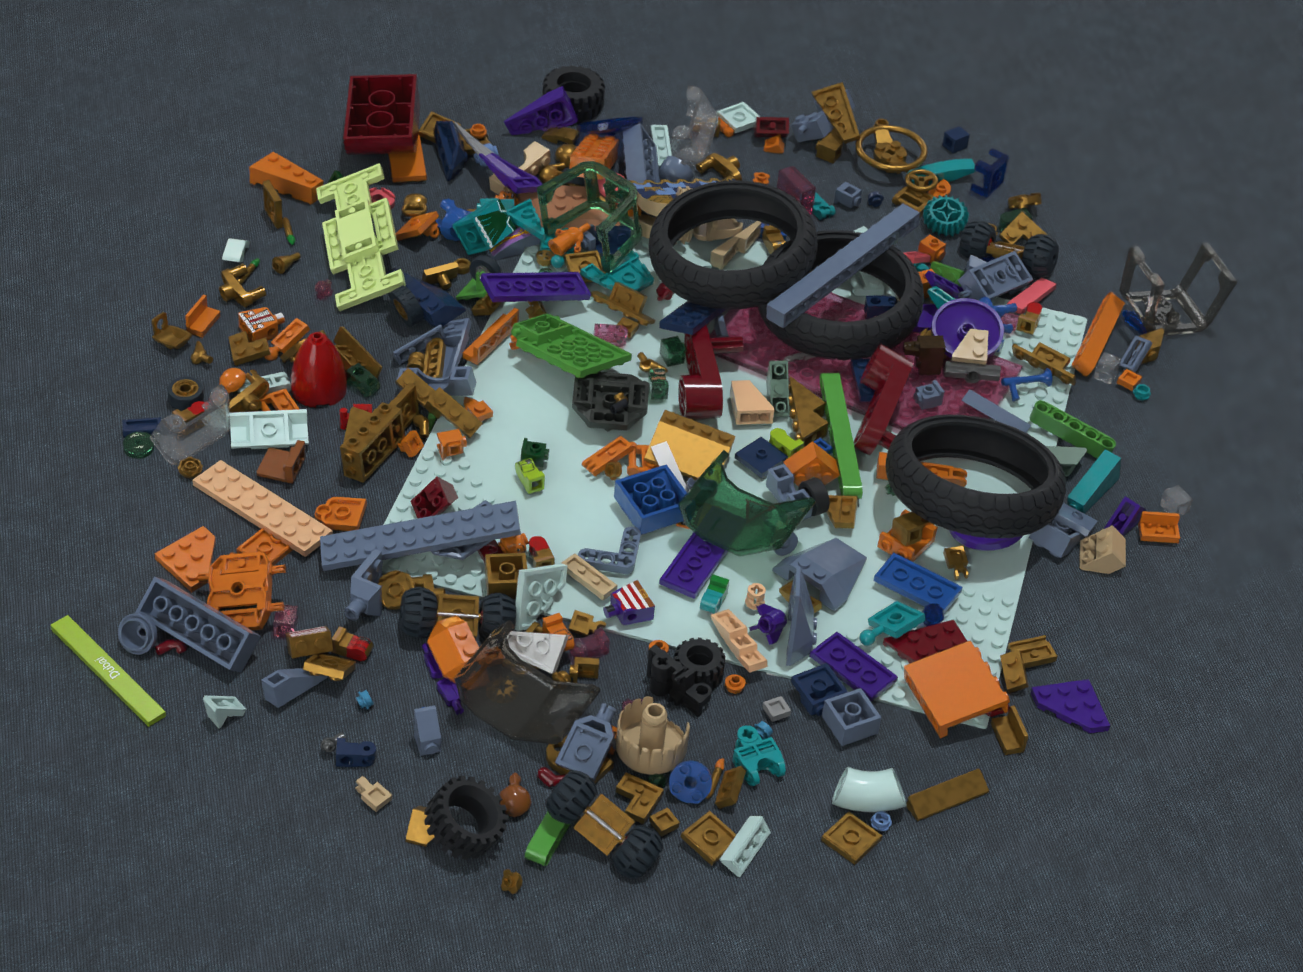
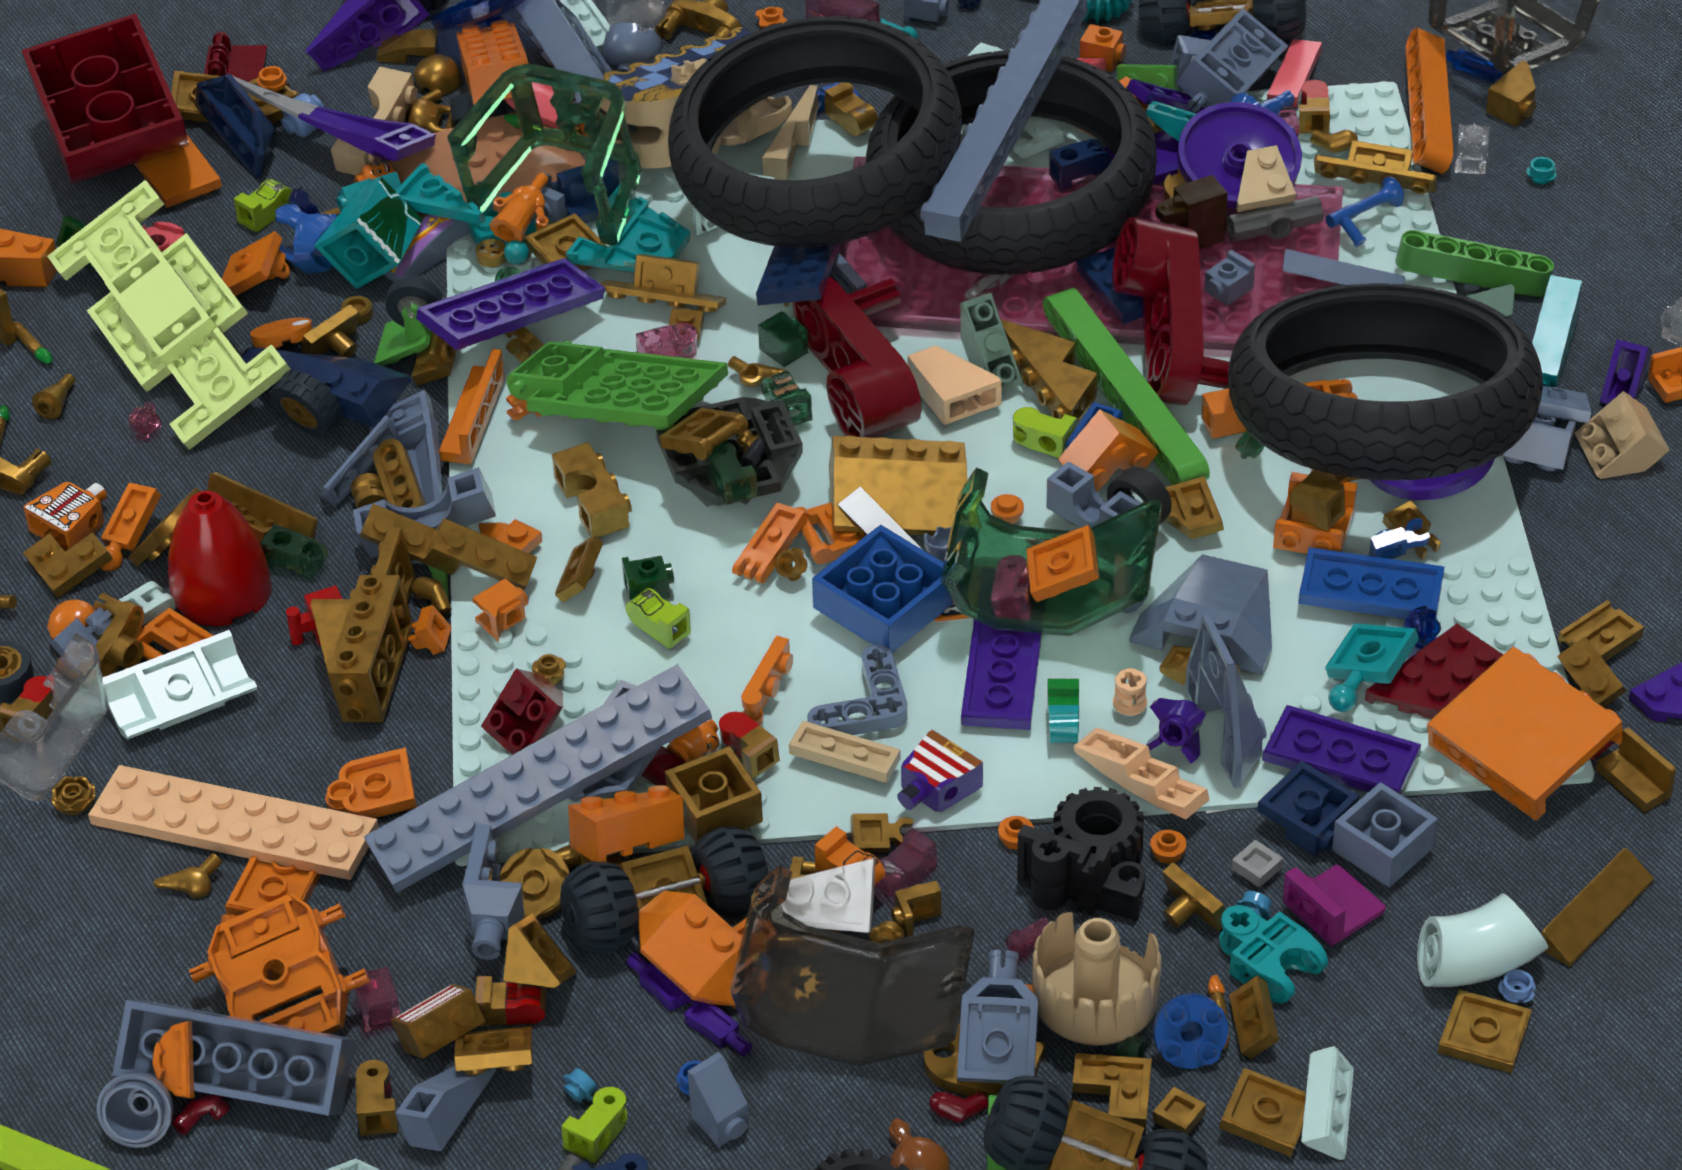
camera: 15 degrees left, 0 degrees up
(166, 614) = (174, 1060): none -> orange tile
(189, 557) = (151, 950): orange plate -> none
(227, 530) = (192, 879): none -> pearl gold animal
(232, 388) = (97, 622): none -> sand blue plate
(258, 669) = (373, 1105): none -> pearl gold leg
(282, 464) = (229, 737): dark orange bracket -> none
(362, 722) = (597, 1126): none -> lime leg
(373, 625) = (534, 956): none -> pearl gold slope
(413, 264) = (280, 332): none -> orange tile
(414, 201) = (225, 228): pearl gold piece -> none
(435, 196) = (261, 204): none -> lime leg
(453, 573) = (625, 821): none -> orange wedge
(460, 483) = (550, 667): none -> pearl gold plate
(461, 201) = (302, 200): none -> clear blue plate
(466, 115) = (238, 60): none -> dark red hinge
(501, 436) = (579, 568): none -> pearl gold plate
(530, 398) = (600, 502): none -> pearl gold arch
(535, 592) = (777, 802): light aqua plate -> none
(567, 526) = (767, 679): none -> orange plate
(596, 385) = (703, 432): none -> pearl gold plate
(600, 415) = (730, 478): none -> clear green leg
(663, 292) = (718, 247): dark red tile -> none
(717, 521) = (1011, 588): none -> clear pink leg
(730, 715) = (1190, 899): none -> pearl gold tile
(744, 479) = (1007, 508): none -> orange plate
(751, 516) = (1062, 563): none -> orange plate
(760, 456) = (1016, 463): dark blue plate -> none
(805, 743) = (1331, 902): none -> magenta bracket
(941, 565) = (1394, 543): none -> blue plate
(1031, 340) = (1336, 142): none -> pearl gold arm
(1129, 379) = (1513, 157): orange plate -> none
(1138, 354) = (1500, 138): sand blue tile -> none

